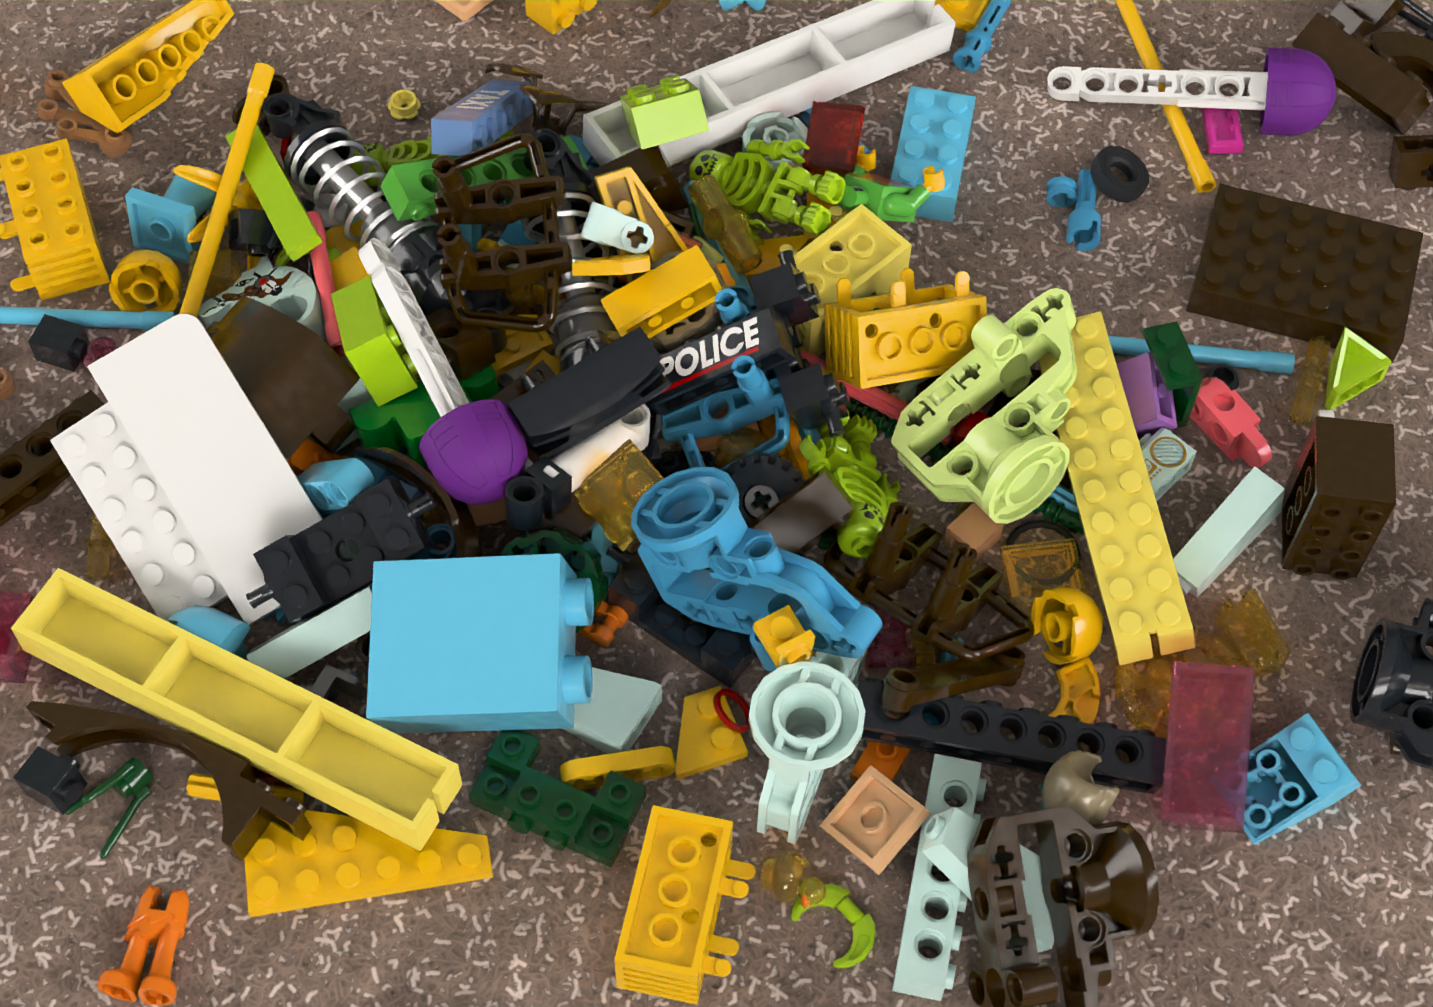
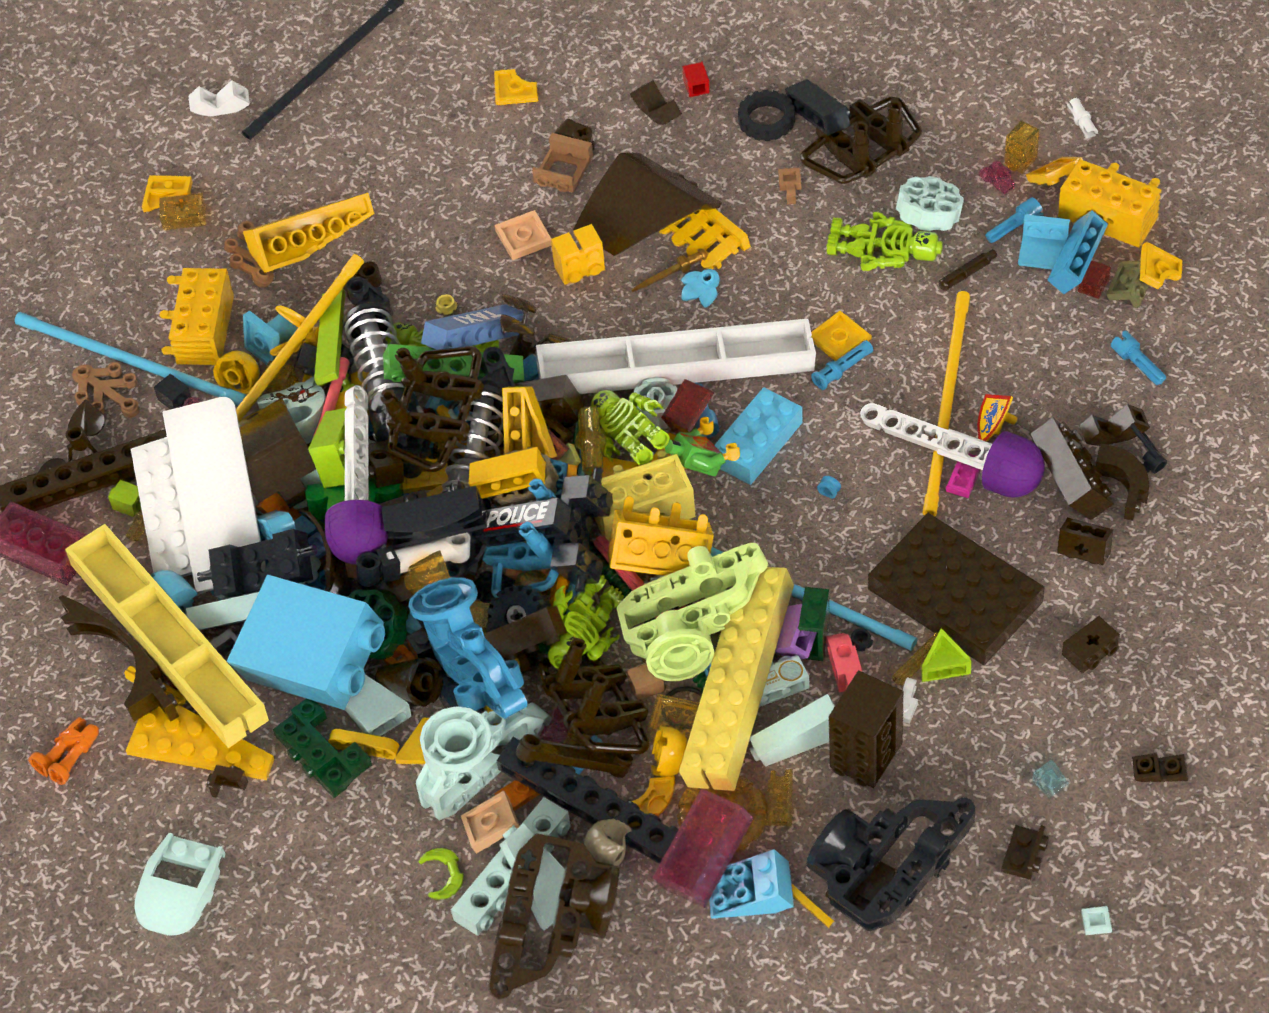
camera: 30 degrees right, 5 degrees down
(51, 779) = (55, 642): black brick -> none
(62, 519) = (125, 498): none -> lime brick
(127, 780) = (96, 657): dark green plant -> none
(440, 893) = (226, 776): none -> dark brown bracket
(611, 229) = (500, 421): light aqua piece -> none
(612, 265) = (489, 444): yellow tile -> none
(646, 647) = (412, 680): none -> dark brown cone
(664, 112) = (578, 358): brick -> none
(677, 906) = (339, 829): yellow piece -> none
(784, 637) = (468, 691): yellow bracket -> none
(785, 877) = (425, 838): clear yellow animal -> none
(1085, 222) = (831, 510): dark azure piece -> none
(1111, 184) = (879, 475): black tyre -> none
(1215, 36) = (993, 414): none -> shield
(1383, 777) = (807, 903): none -> yellow piece

